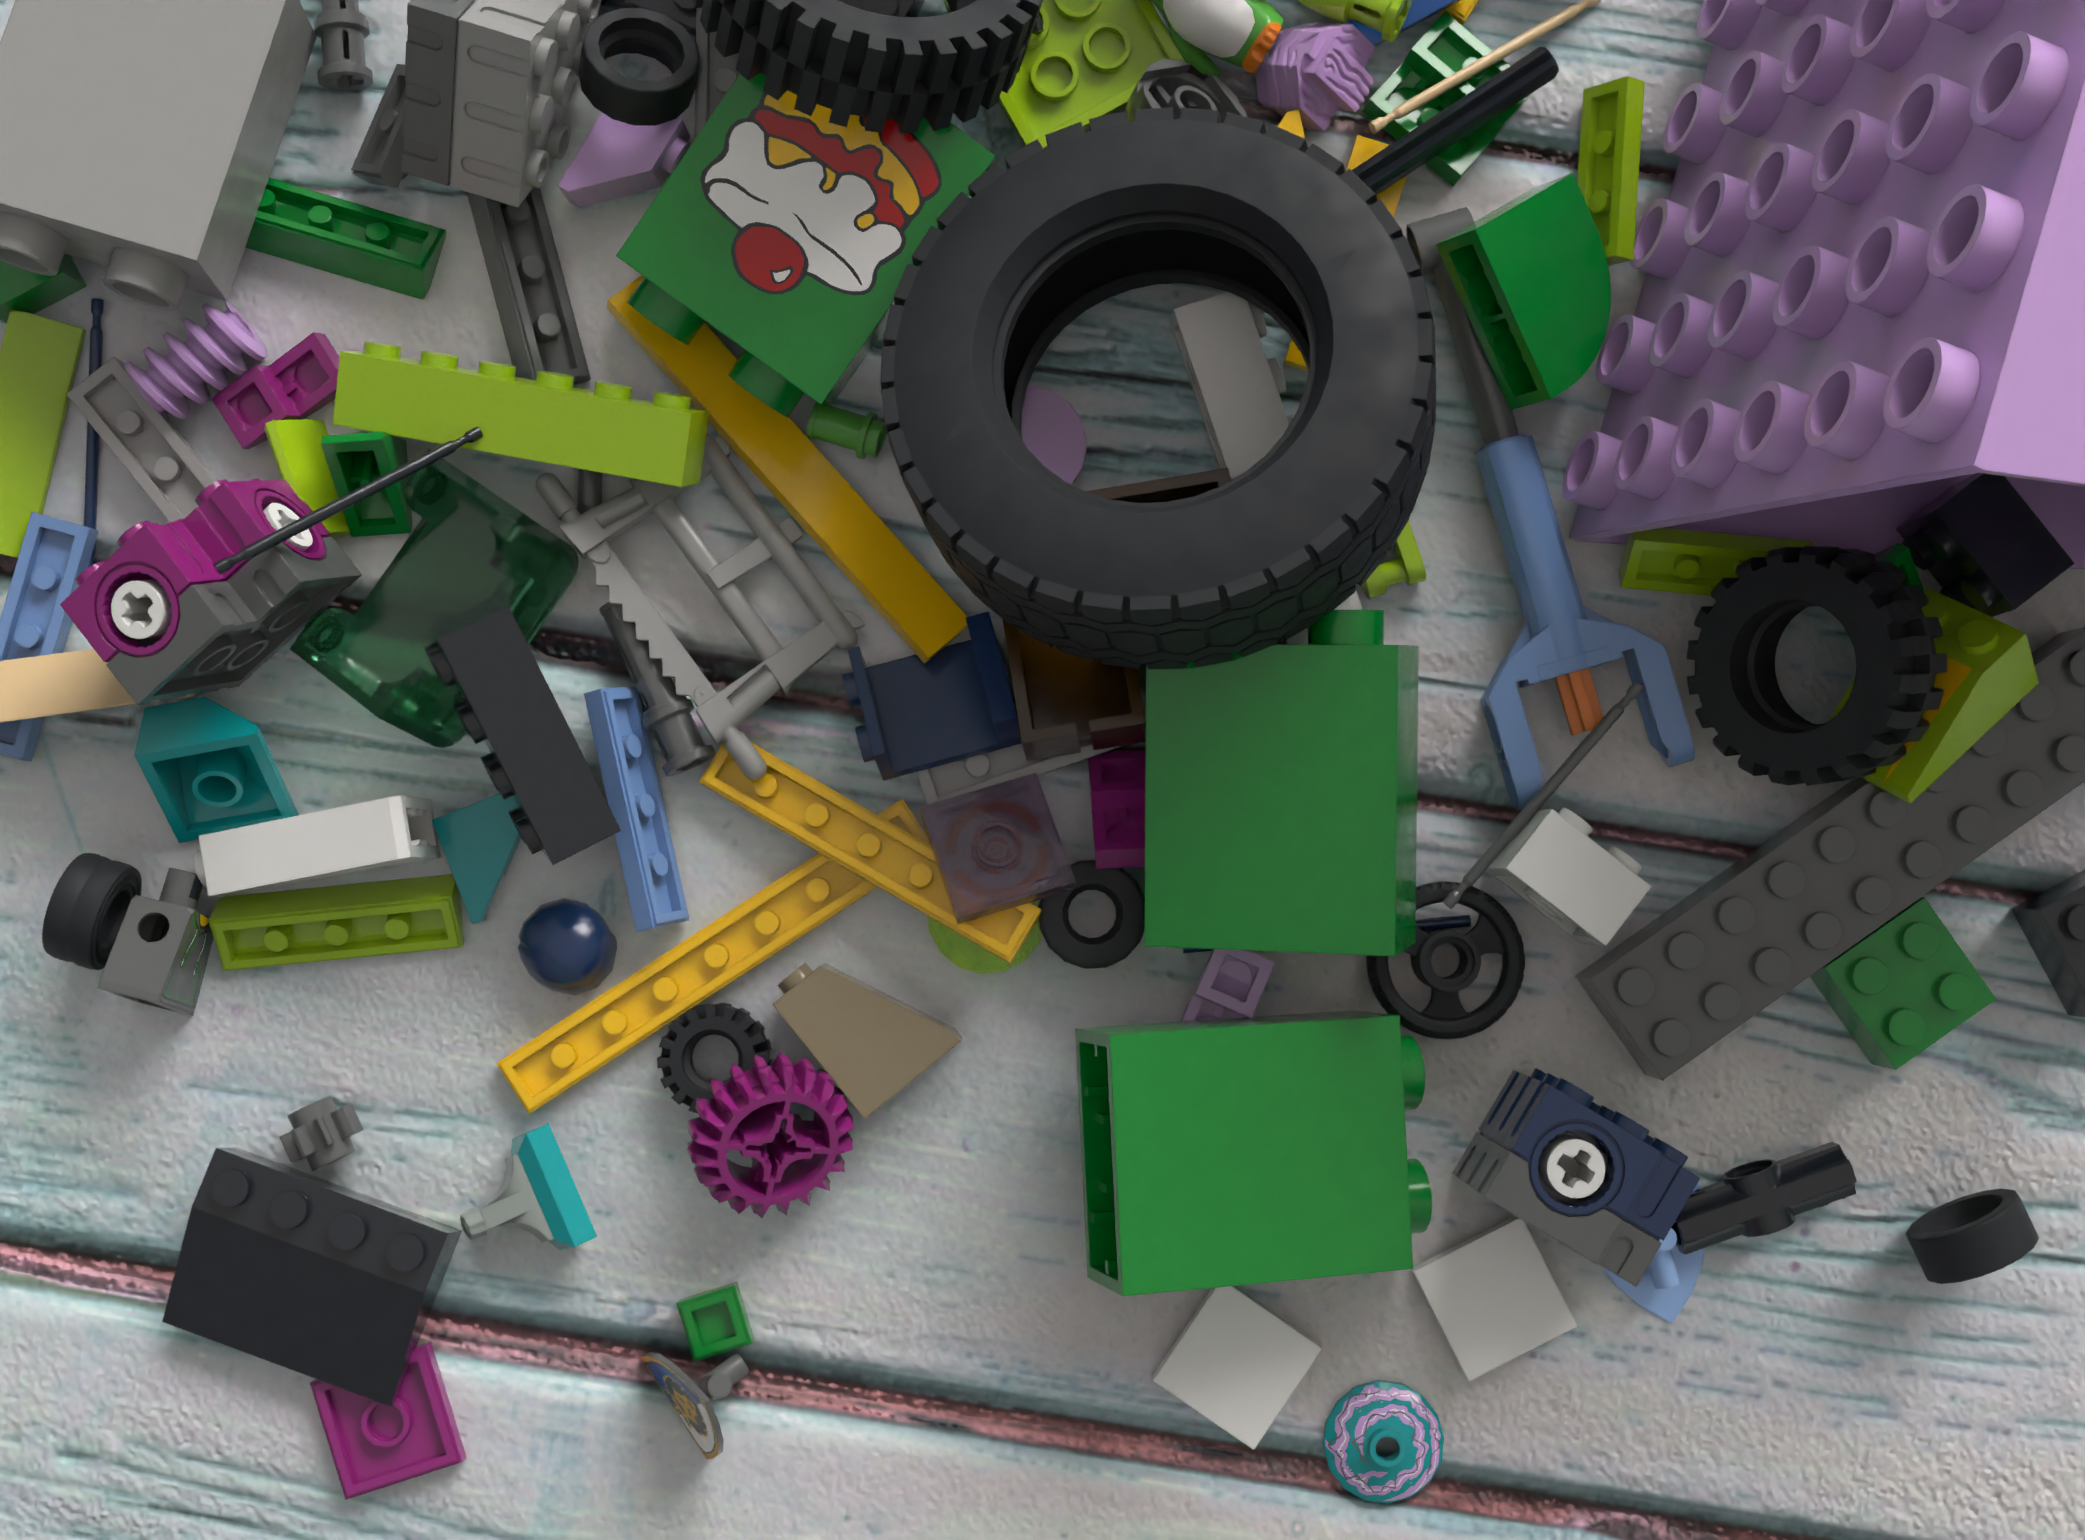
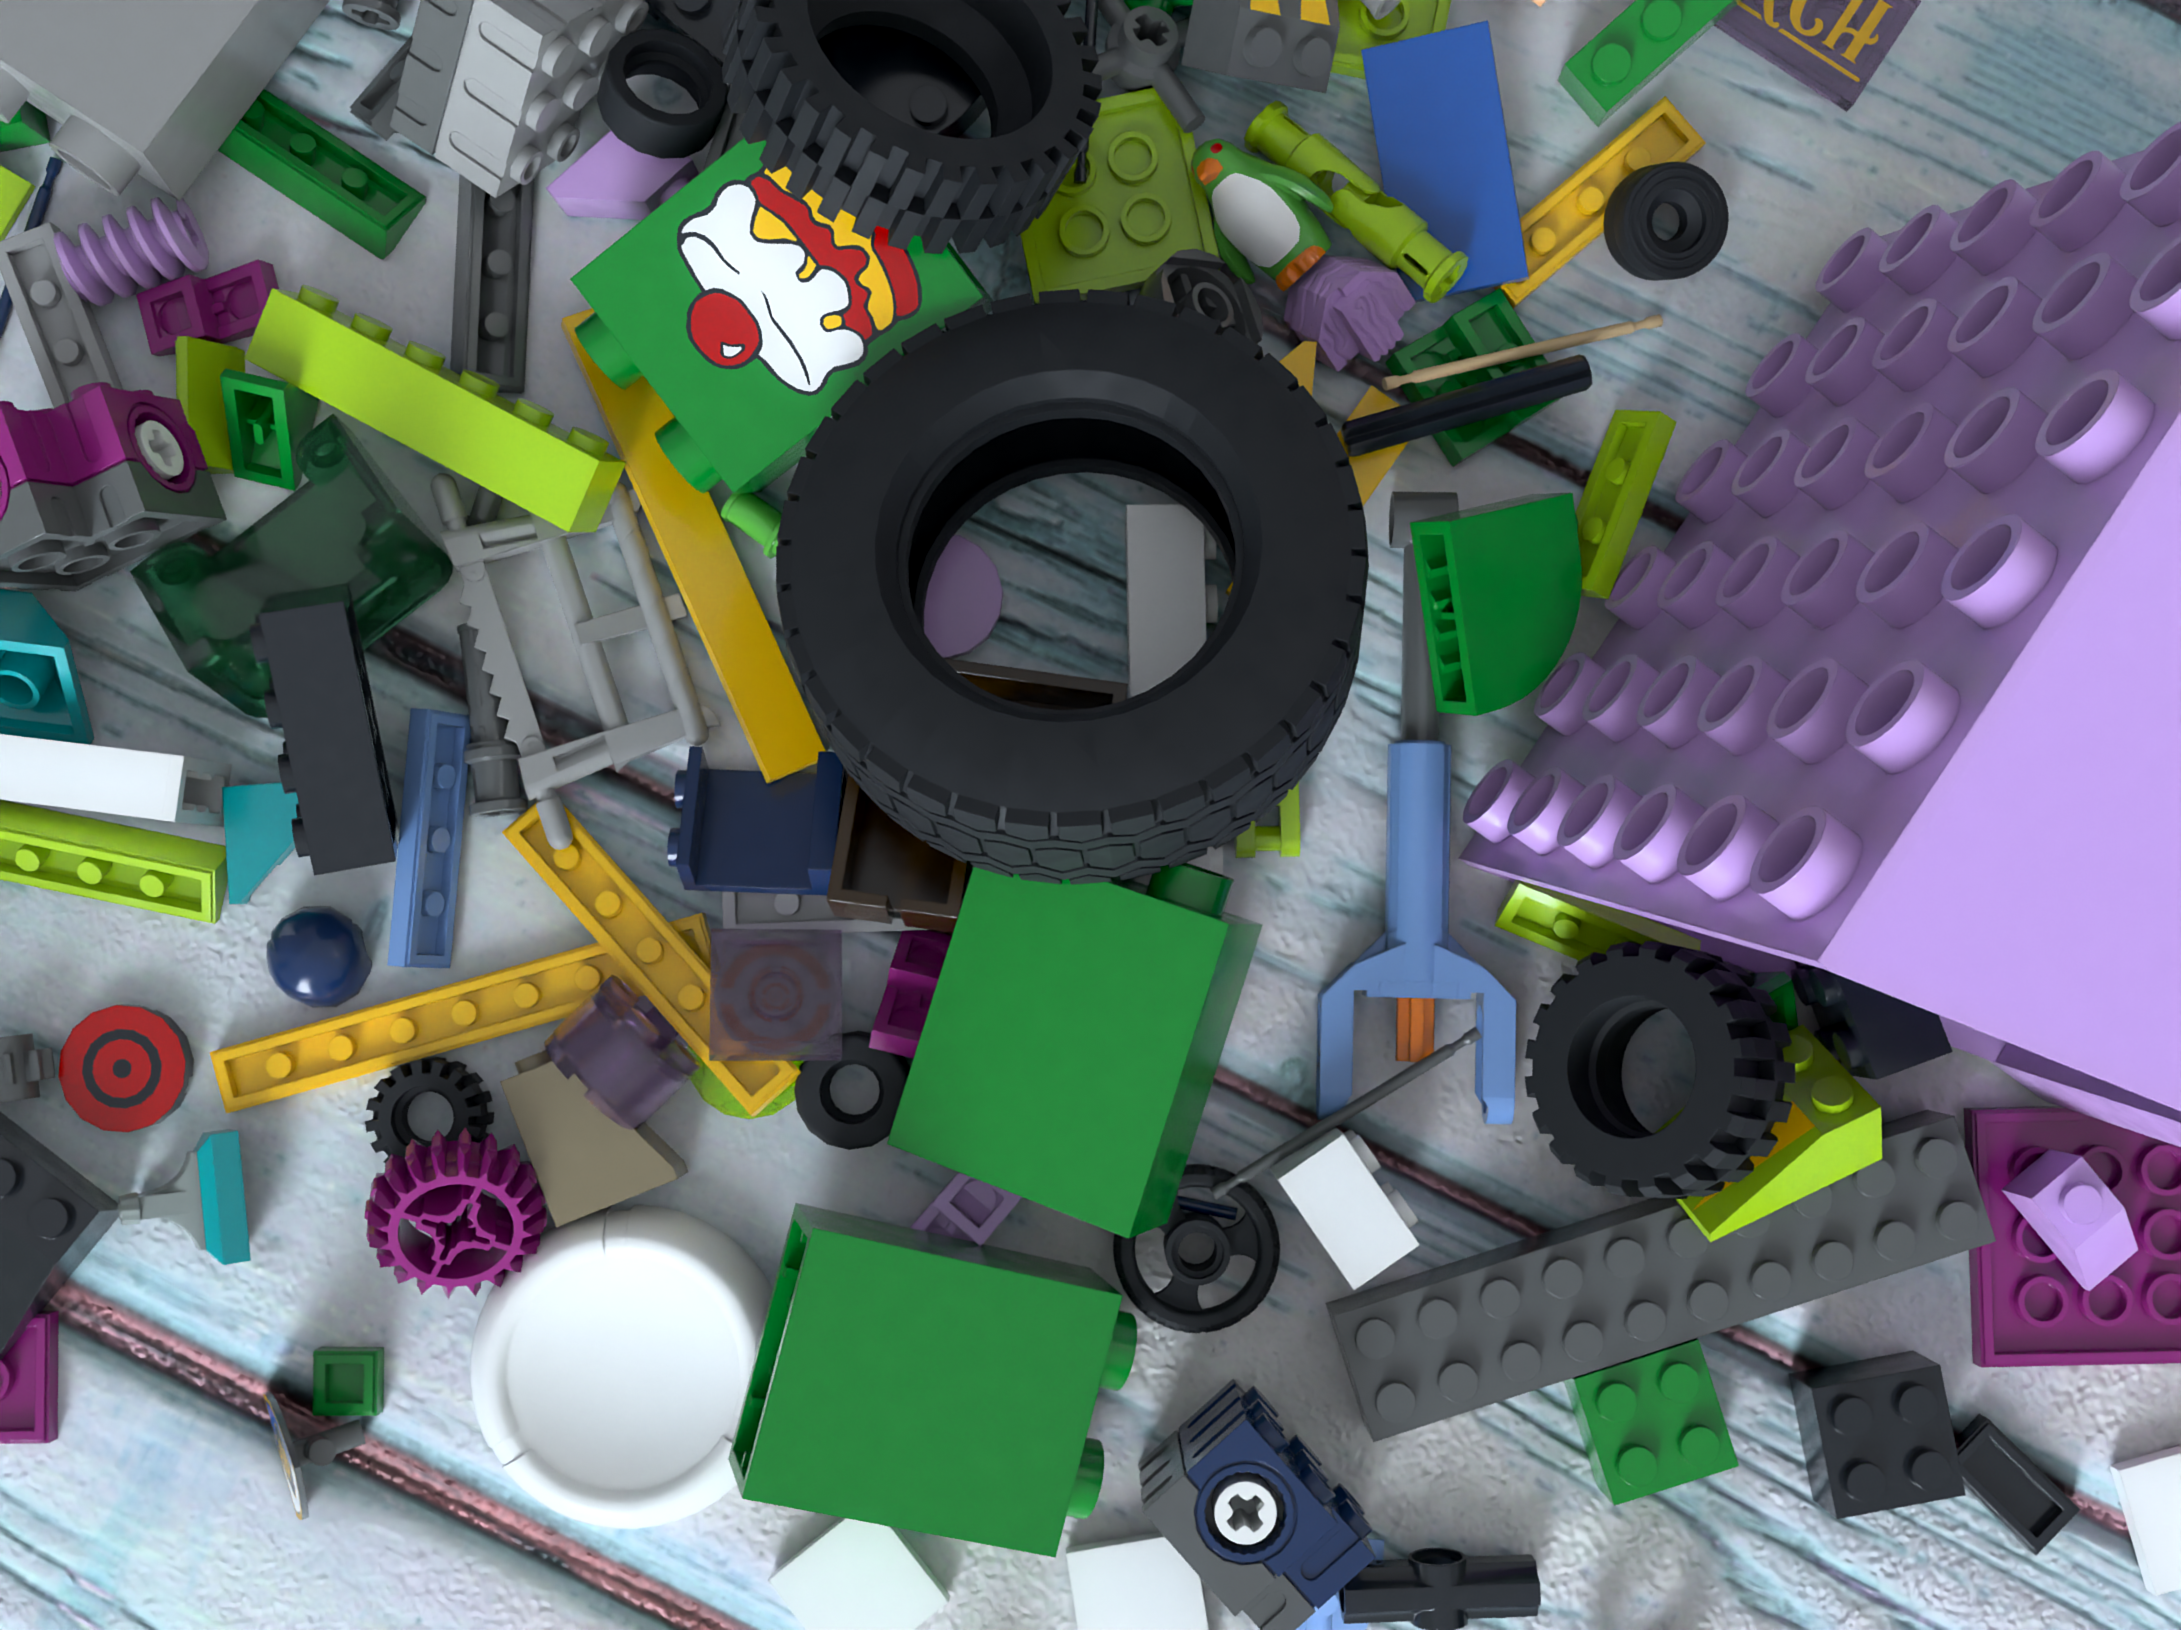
camera: 15 degrees right, 0 degrees up
(347, 501) = (221, 443): black piece -> none
(423, 1102) = (125, 1068): none -> red tile
(875, 944) = (621, 1054): none -> clear purple brick
(960, 1229) = (620, 1365): none -> white piece

